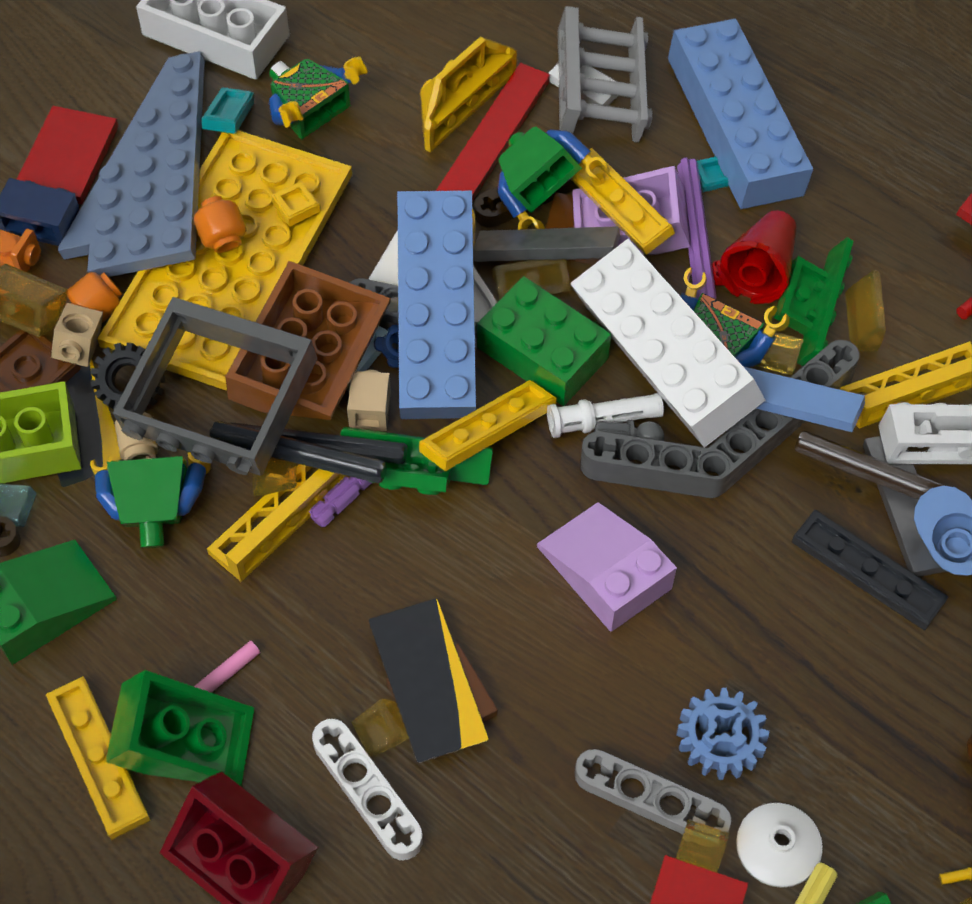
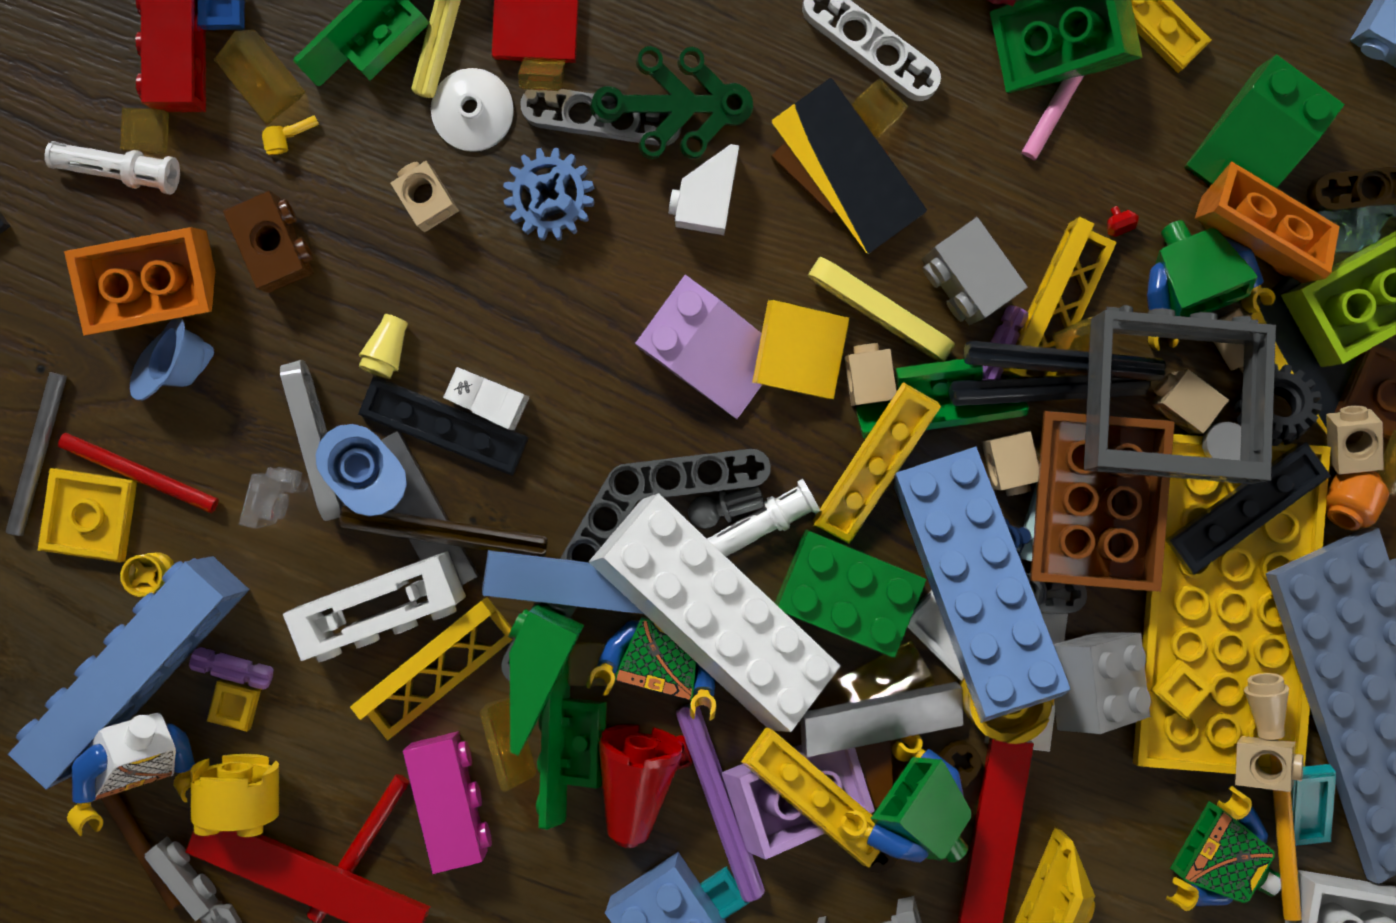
camera: 165 degrees right, 30 degrees up
(73, 509) = (1270, 224): none -> orange slope
(186, 361) = (1222, 441): none -> light grey tile
(194, 565) = (1121, 222): none -> red rock
(199, 402) = (1188, 401): none -> tan brick
(219, 224) = (1256, 623): orange head -> none
(232, 297) = (1247, 509): none -> black tile
(233, 175) = (1268, 704): none -> tan cone
(256, 95) = (1286, 849): none -> light orange bar
(265, 126) = (1250, 773): none -> tan brick
(352, 544) = (972, 273): none -> light grey brick
(360, 220) = (1104, 682): none -> light grey brick
(441, 549) = (881, 309): none -> light yellow beam
(468, 497) = (870, 375): none -> tan brick
(524, 536) = (800, 349): none -> yellow tile
(570, 690) = (706, 194): none -> white slope
(574, 775) = (679, 102): none -> dark green plant
(822, 333) = (536, 661): none -> green slope
(823, 575) = (486, 398): none -> white leg
(851, 750) = (431, 212): none -> tan brick
(912, 644) = (384, 348): none -> light yellow cone
(926, 284) = (447, 802): none -> dark pink brick

